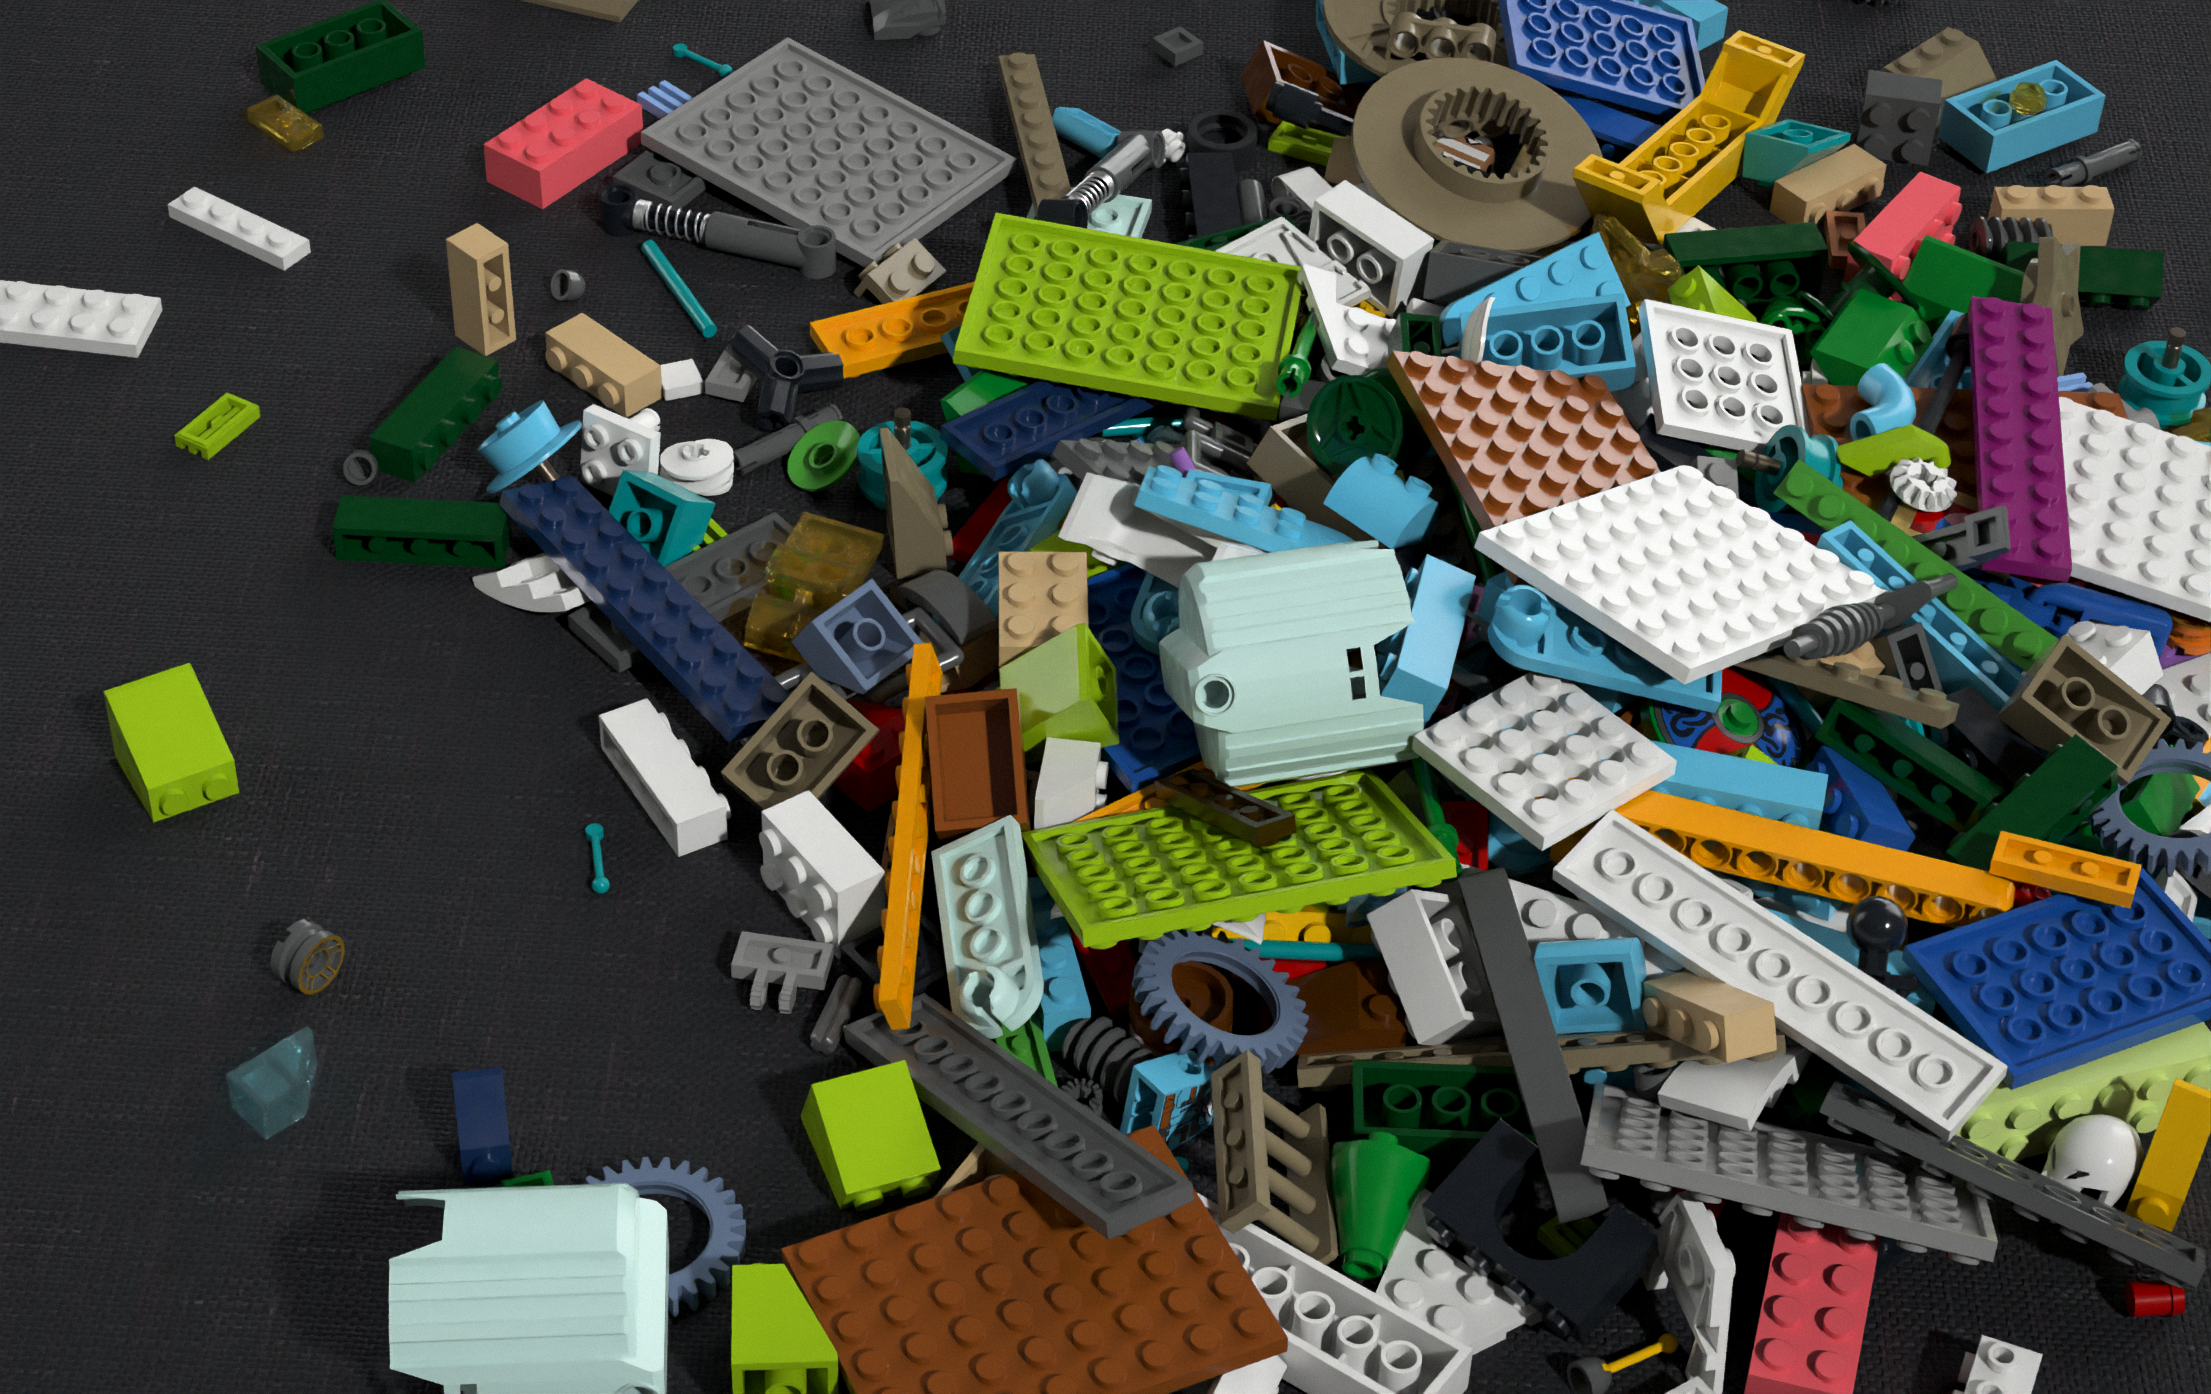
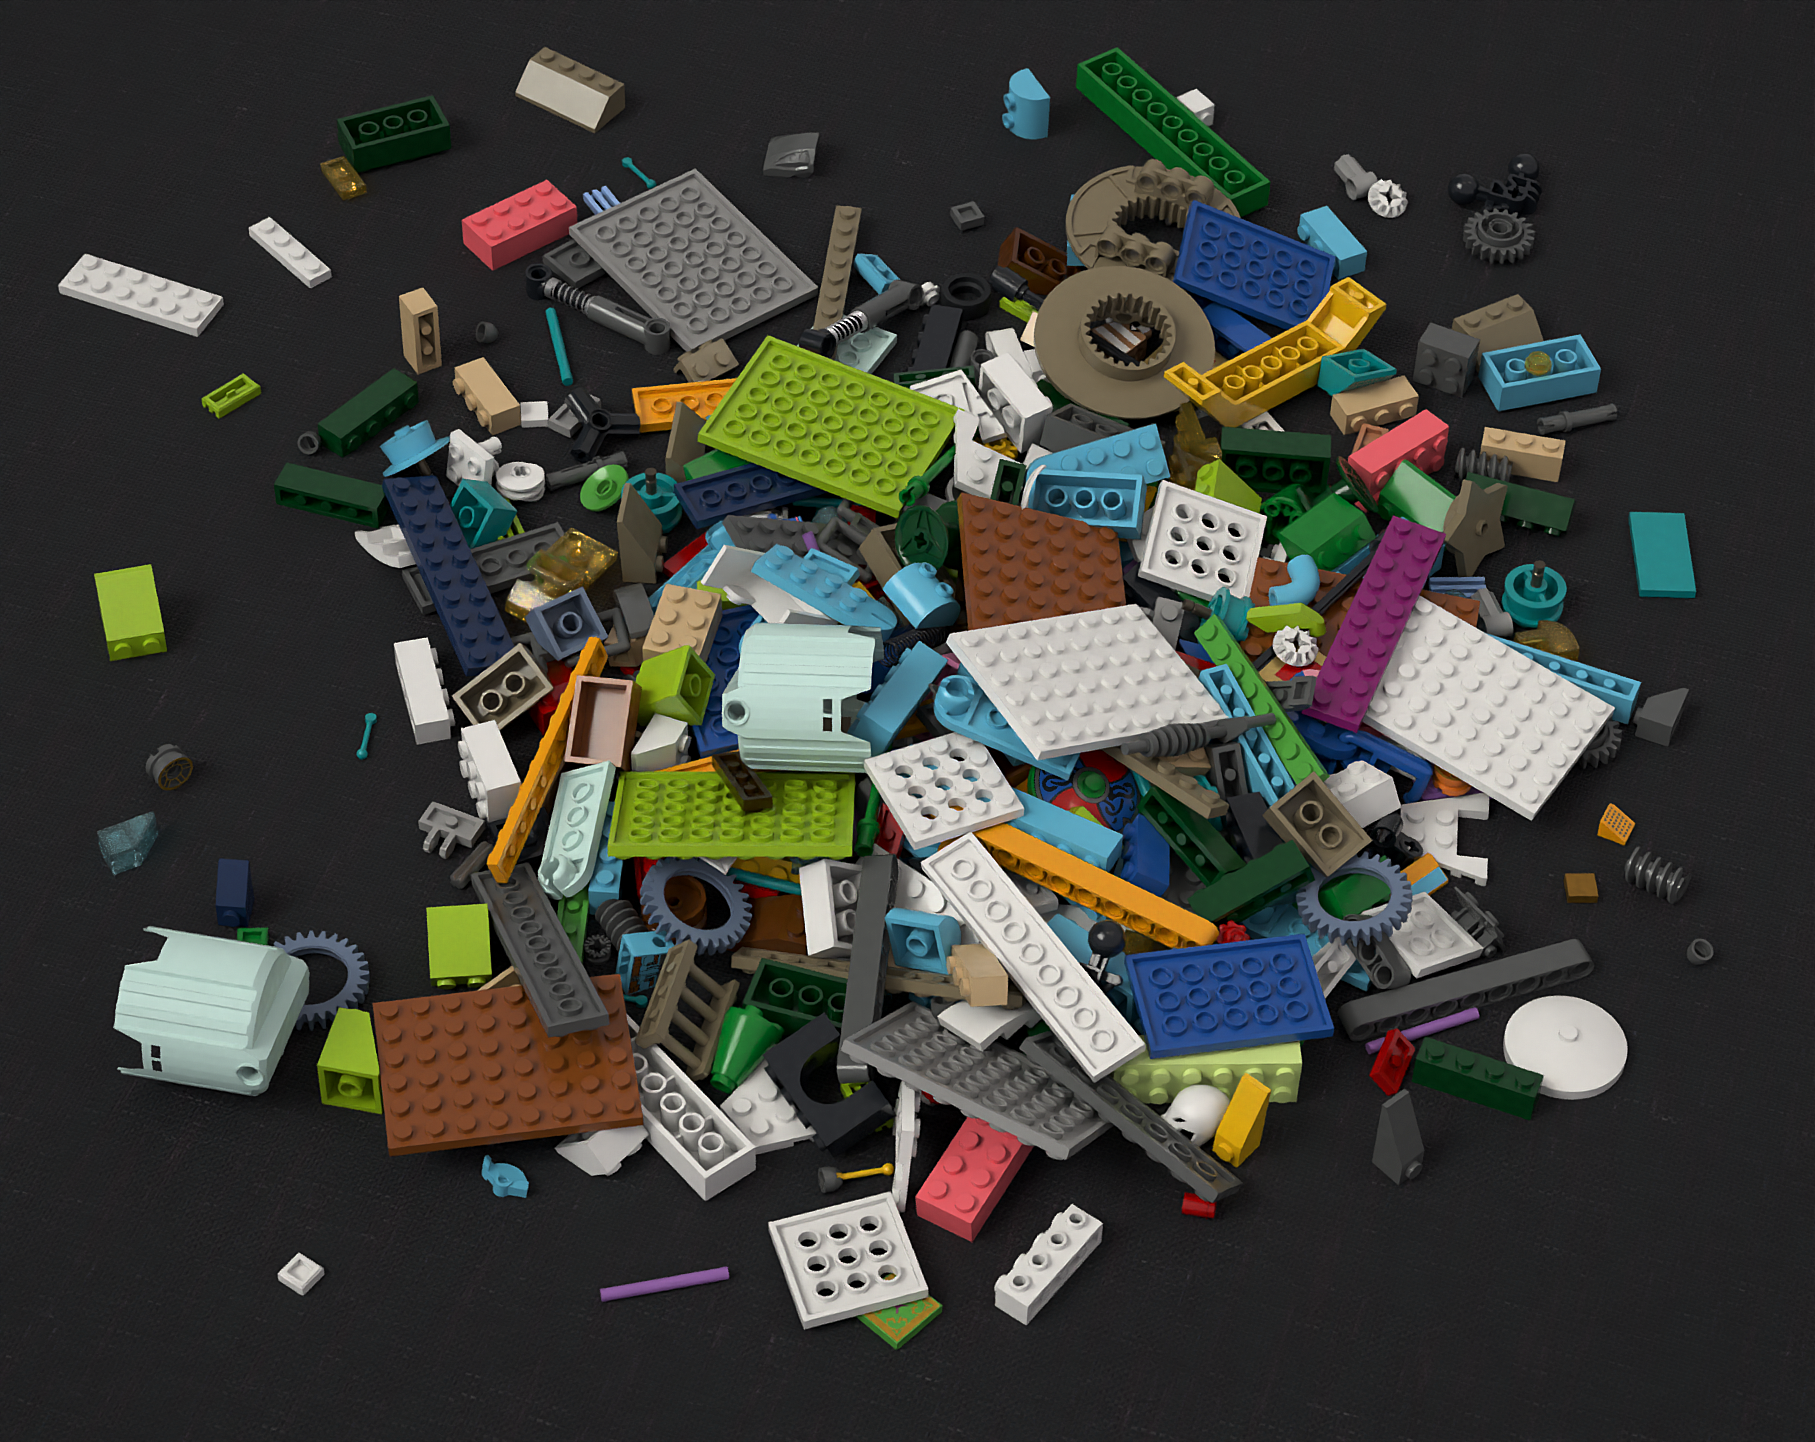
camera: 15 degrees right, 5 degrees up
(923, 375) = (683, 441): none -> dark tan slope
(2065, 869) = (1248, 926): light orange plate -> none

